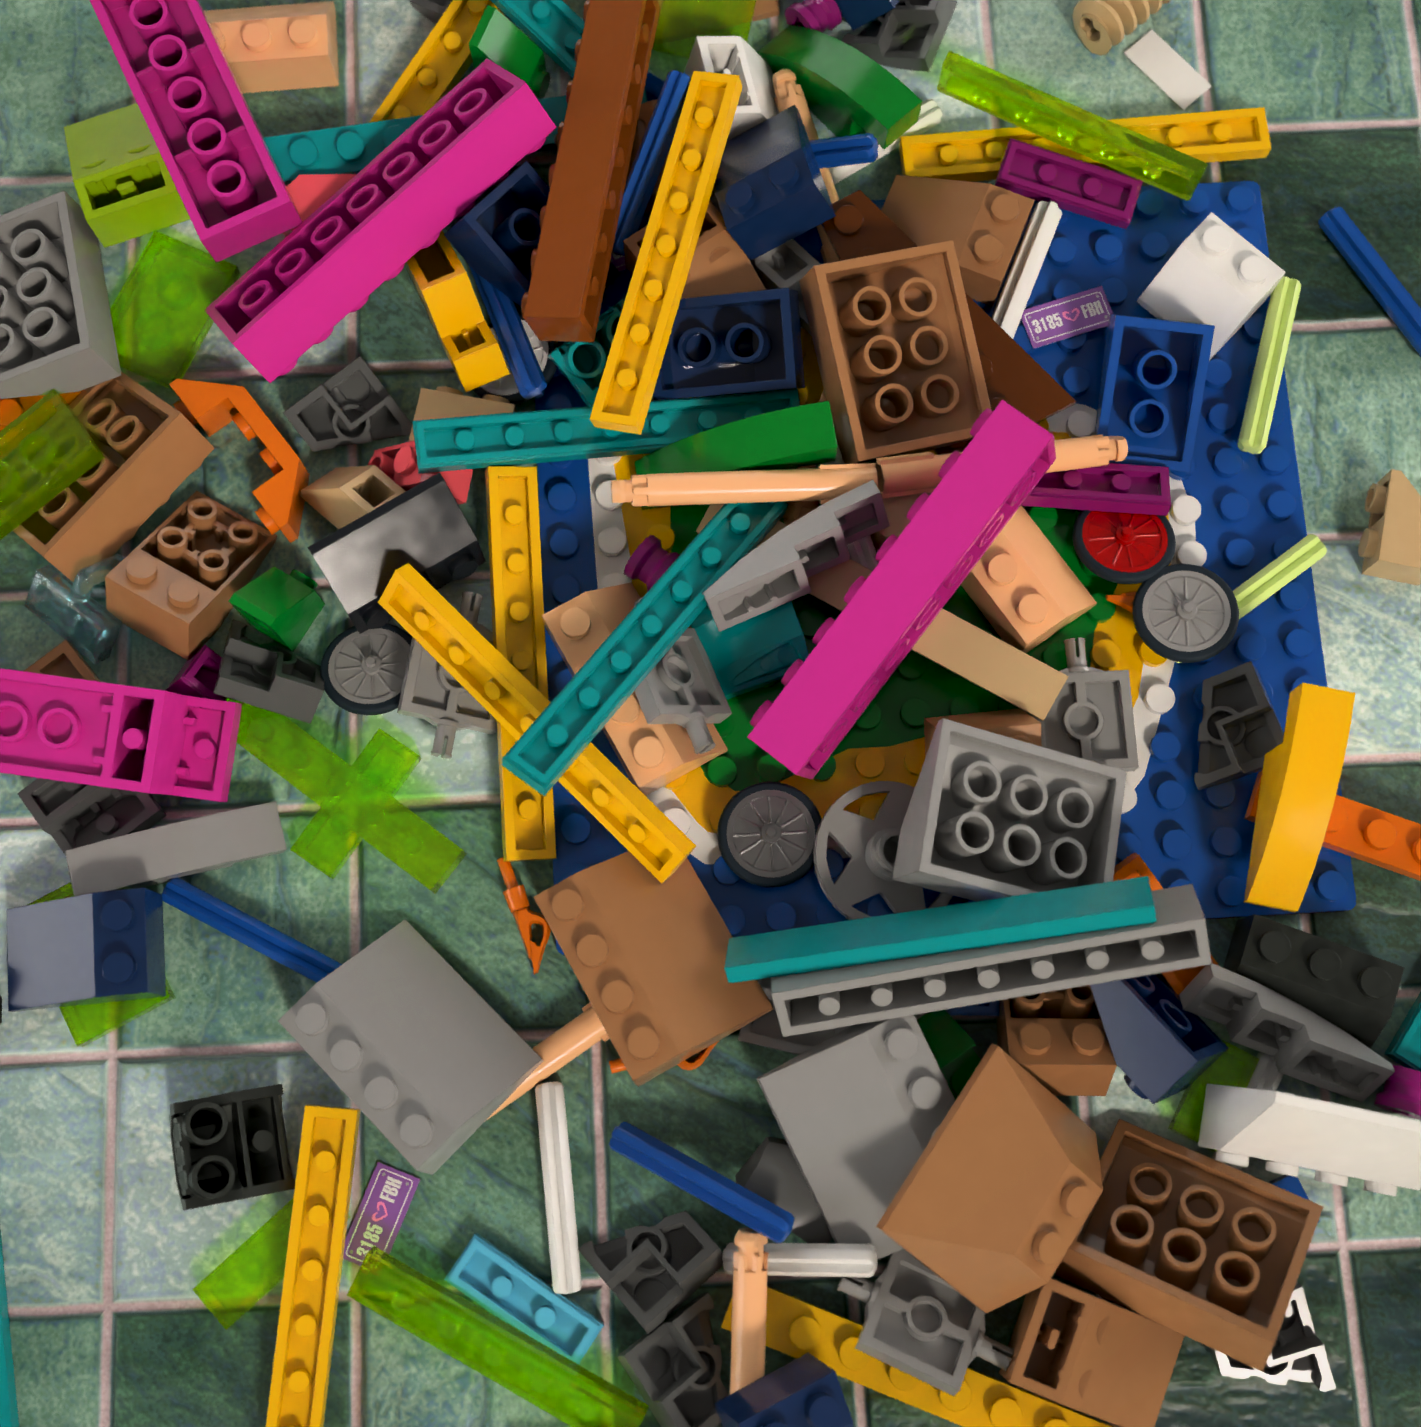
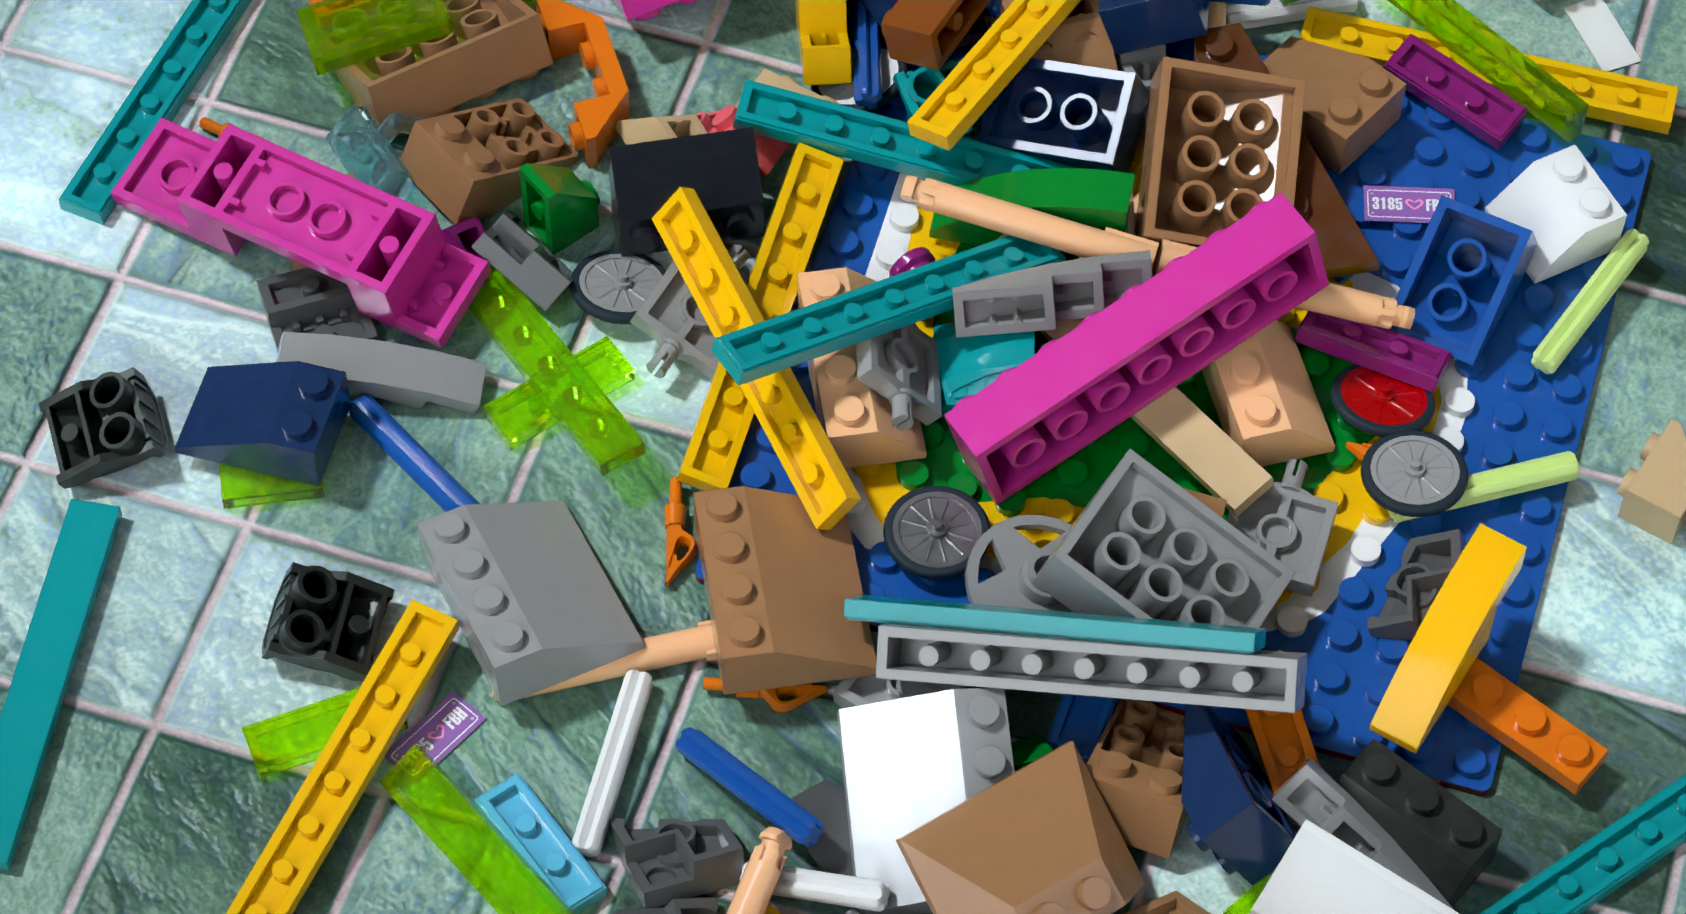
camera: 20 degrees right, 20 degrees down
(348, 411) = (686, 72): dark grey slope -> none
(1026, 266) = (1384, 147): white axle -> none

